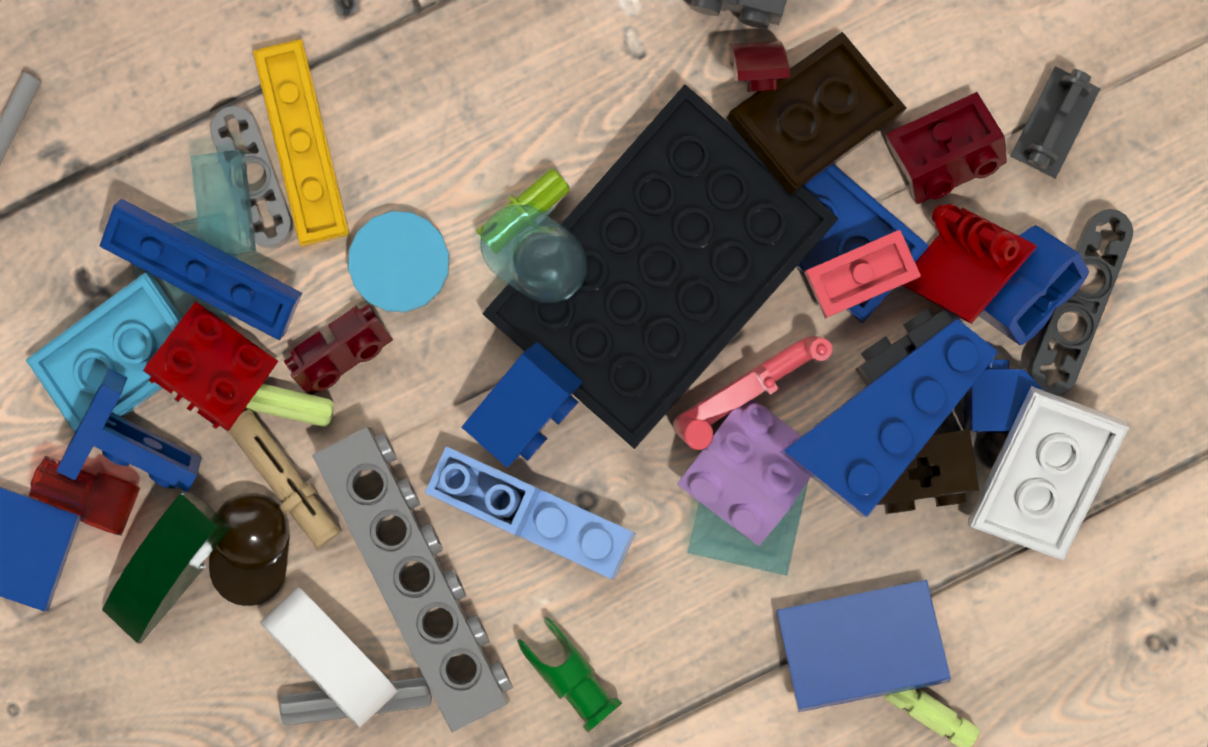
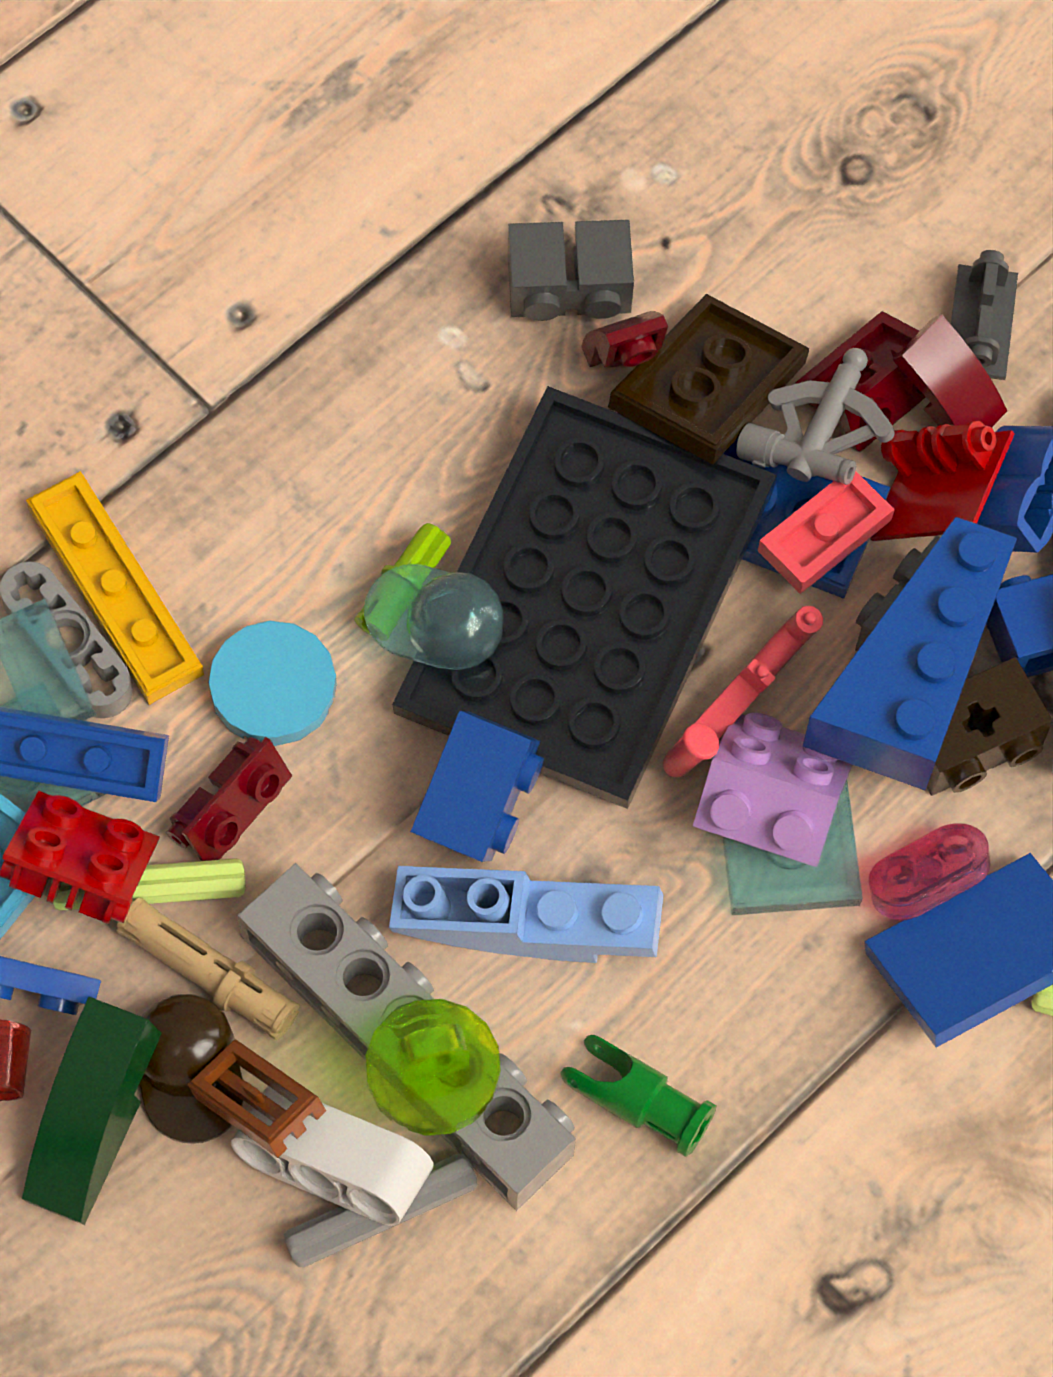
camera: 20 degrees left, 20 degrees down
(301, 633) = (284, 1121): none -> dark orange tile
(418, 621) = (433, 1066): none -> clear neon green tile
(847, 573) = (935, 870): none -> clear pink plate
(871, 207) = (813, 452): none -> light grey piece
(1006, 178) = (950, 376): none -> dark red slope

